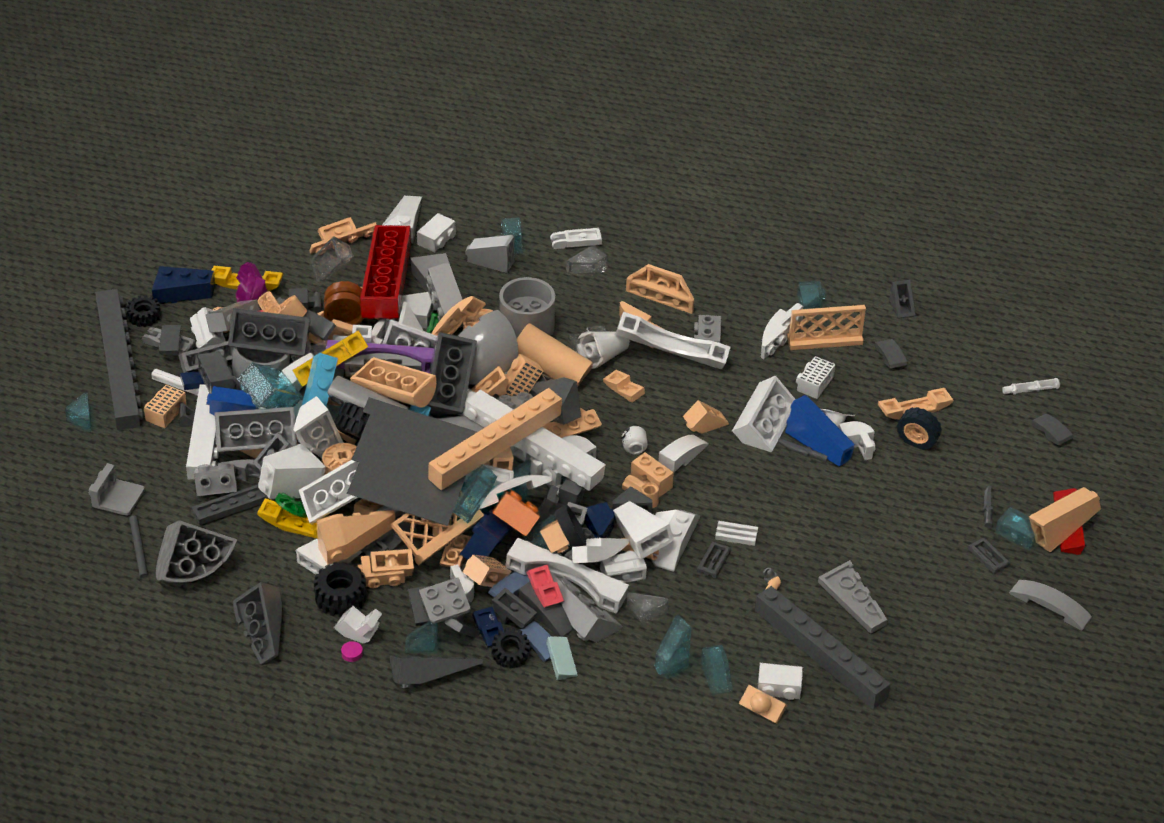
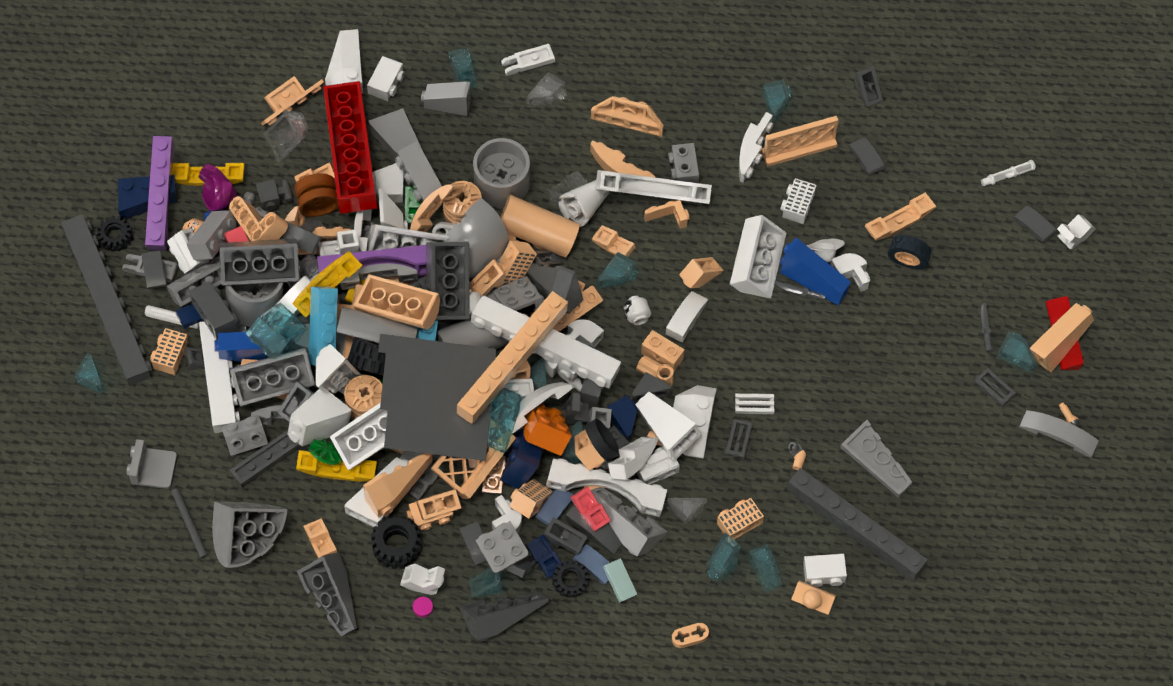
camera: 10 degrees left, 20 degrees up
(203, 258) = (158, 199): none -> medium lavender arch
(264, 573) = (320, 538): none -> light nougat slope
(621, 407) = (617, 272): none -> clear light blue slope
(624, 718) = (692, 639): none -> light nougat beam
(683, 365) = (670, 207): none -> light nougat bracket
(704, 623) = (740, 519): none -> light nougat brick
(1061, 587) = (1070, 418): none -> light nougat piece
(1093, 439) = (1075, 231): none -> white brick

